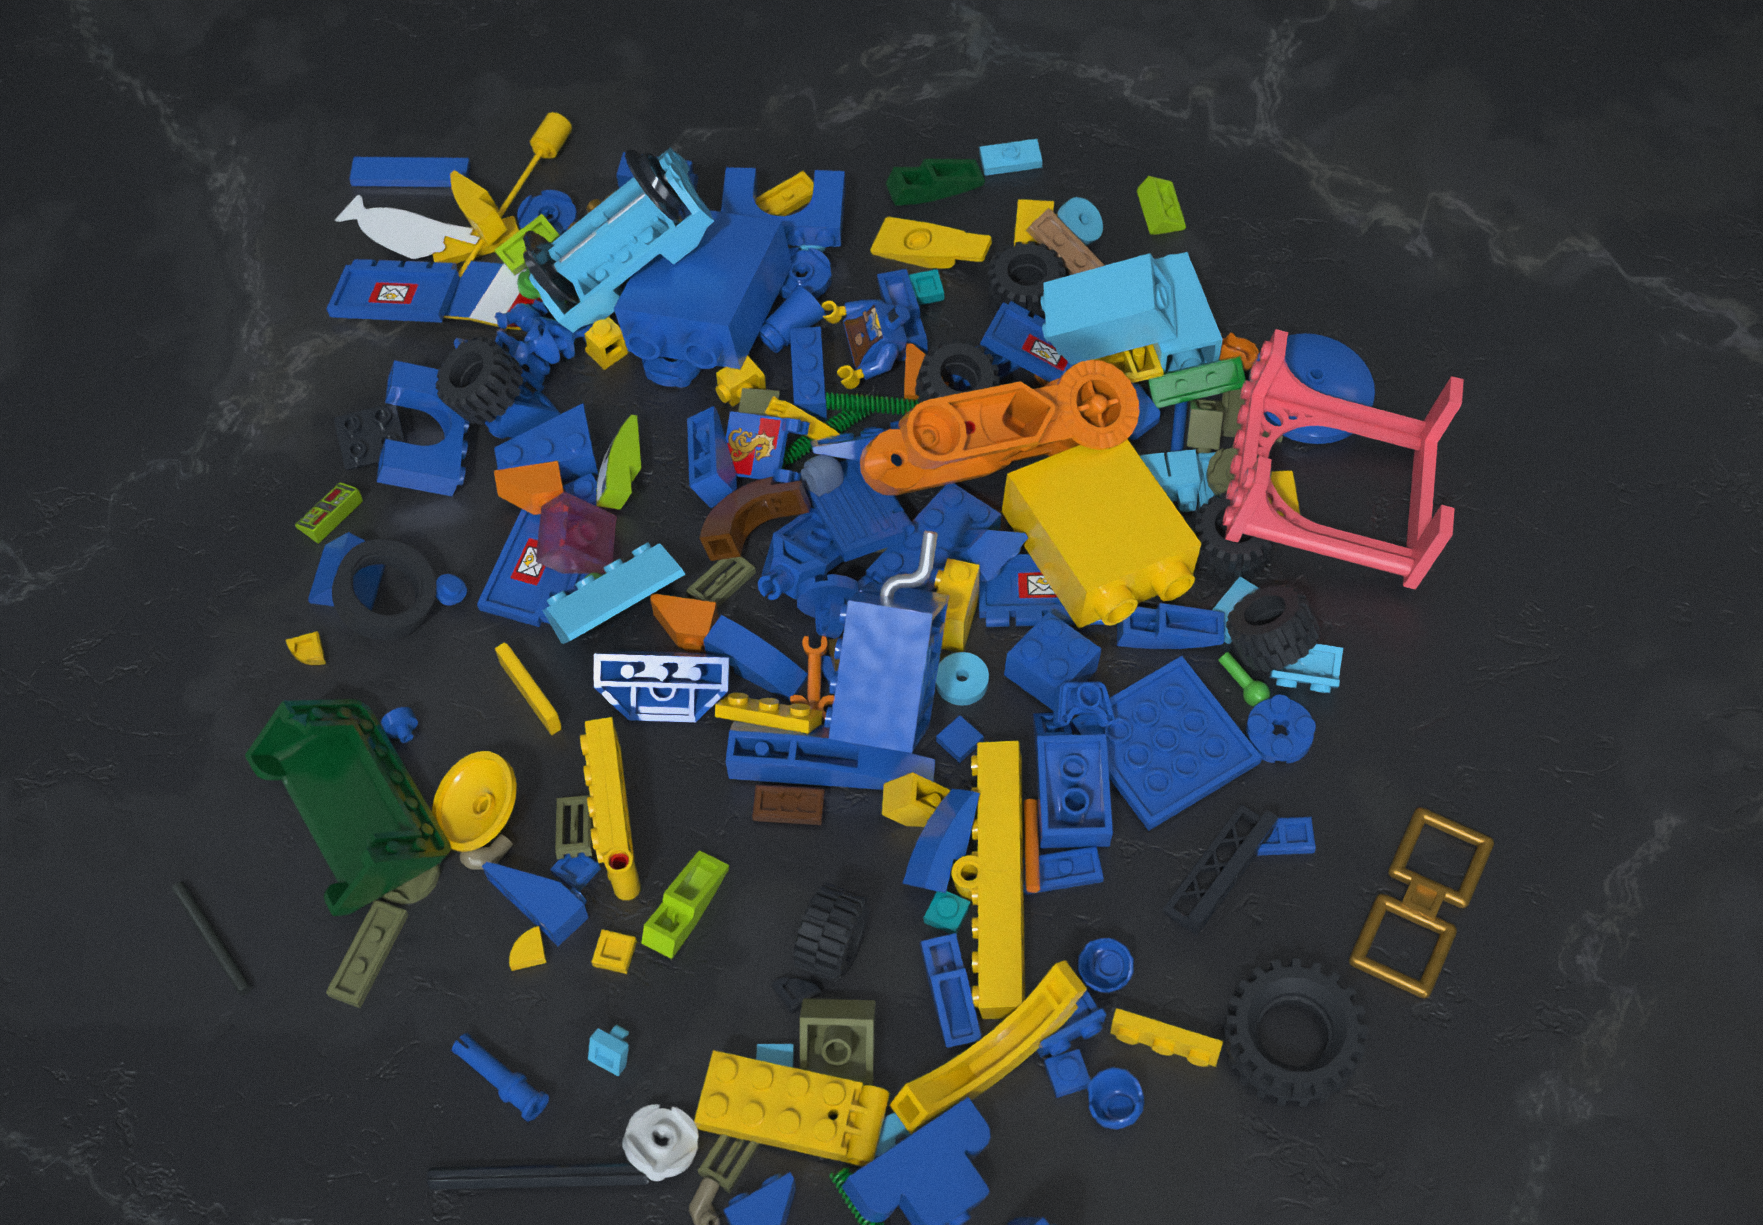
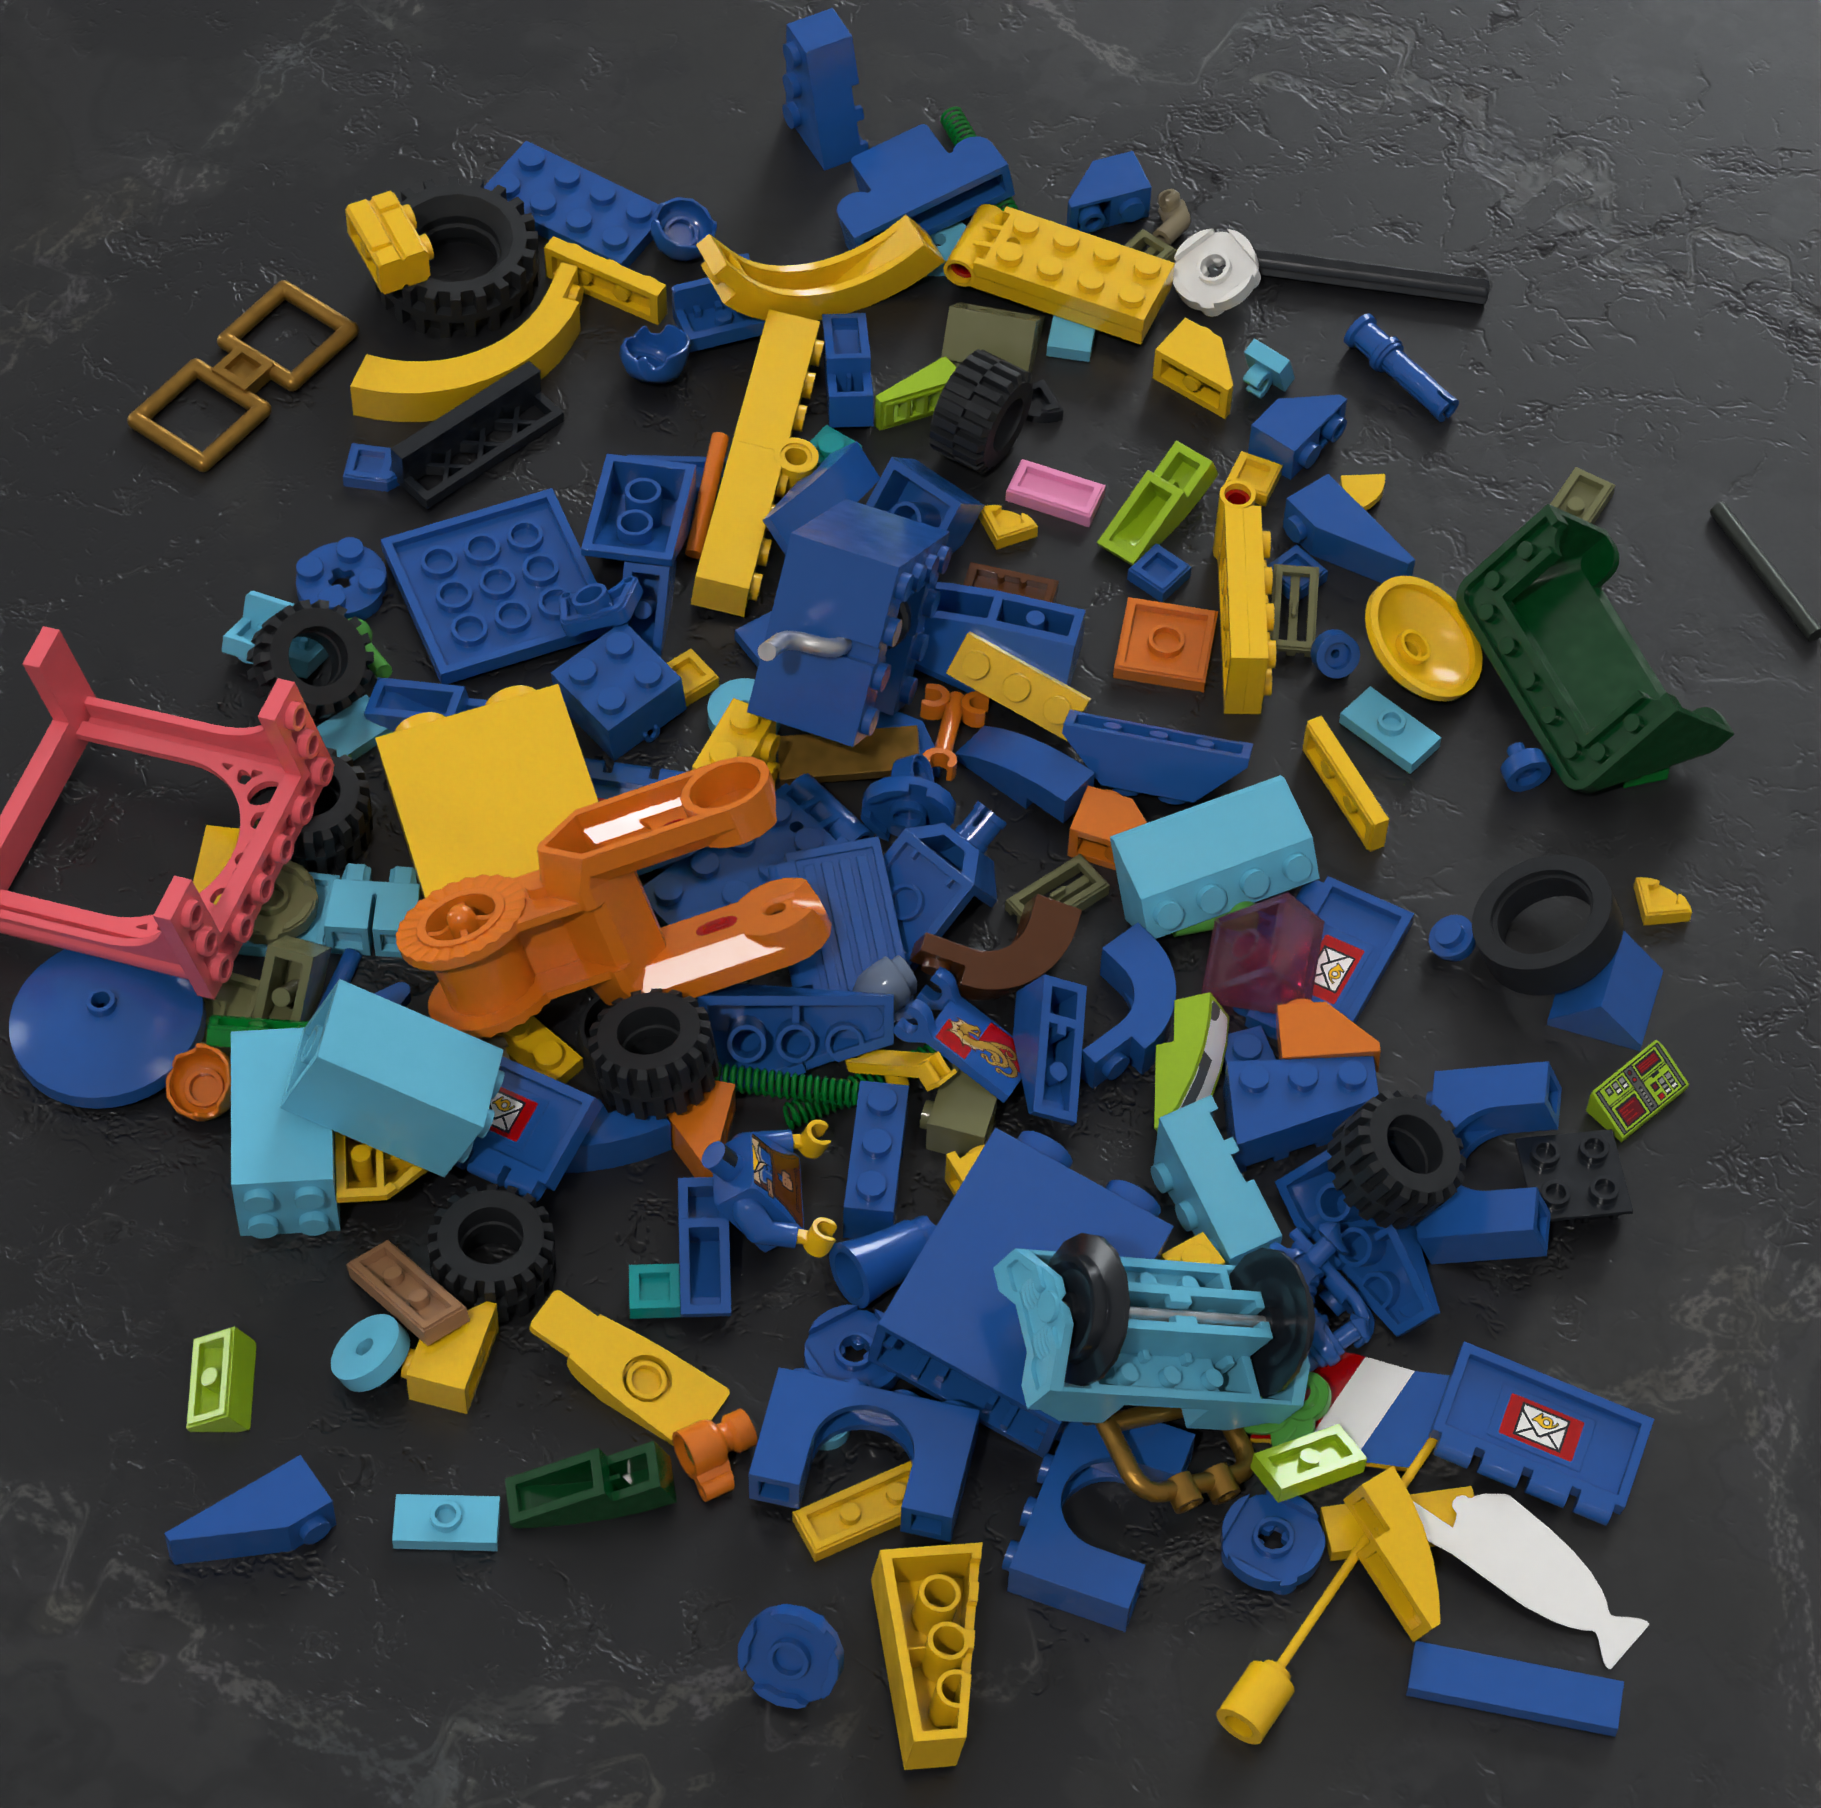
camera: 175 degrees left, 5 degrees down
(494, 739) = (1390, 730): none -> medium azure plate
(541, 794) = (1335, 653): none -> blue tile
(582, 991) = (1297, 430): none -> blue slope
(599, 387) = (1207, 1185): none -> medium azure wedge
(647, 497) = (1146, 981): none -> blue arch
(667, 790) = (1165, 644): none -> orange tile
(669, 1042) = (1195, 366): none -> yellow slope
(678, 850) = (1159, 573): none -> blue tile
(730, 127) = (928, 1639): none -> yellow wedge
(767, 909) = (1055, 493): none -> bright pink tile
(800, 872) = (1006, 526): none -> yellow tile
(803, 108) = (791, 1655): none -> blue tile
(866, 855) = (926, 497): none -> blue slope
(875, 209) = (705, 1450): none -> orange piece
(883, 972) = (913, 396): none -> lime slope
(1009, 699) = (696, 676): none -> yellow tile
(1112, 133) = (260, 1519): none -> blue slope
(1217, 1124) = (577, 204): none -> blue plate
(1258, 905) = (430, 389): none -> yellow arch
(1344, 987) = (388, 241): none -> yellow brick

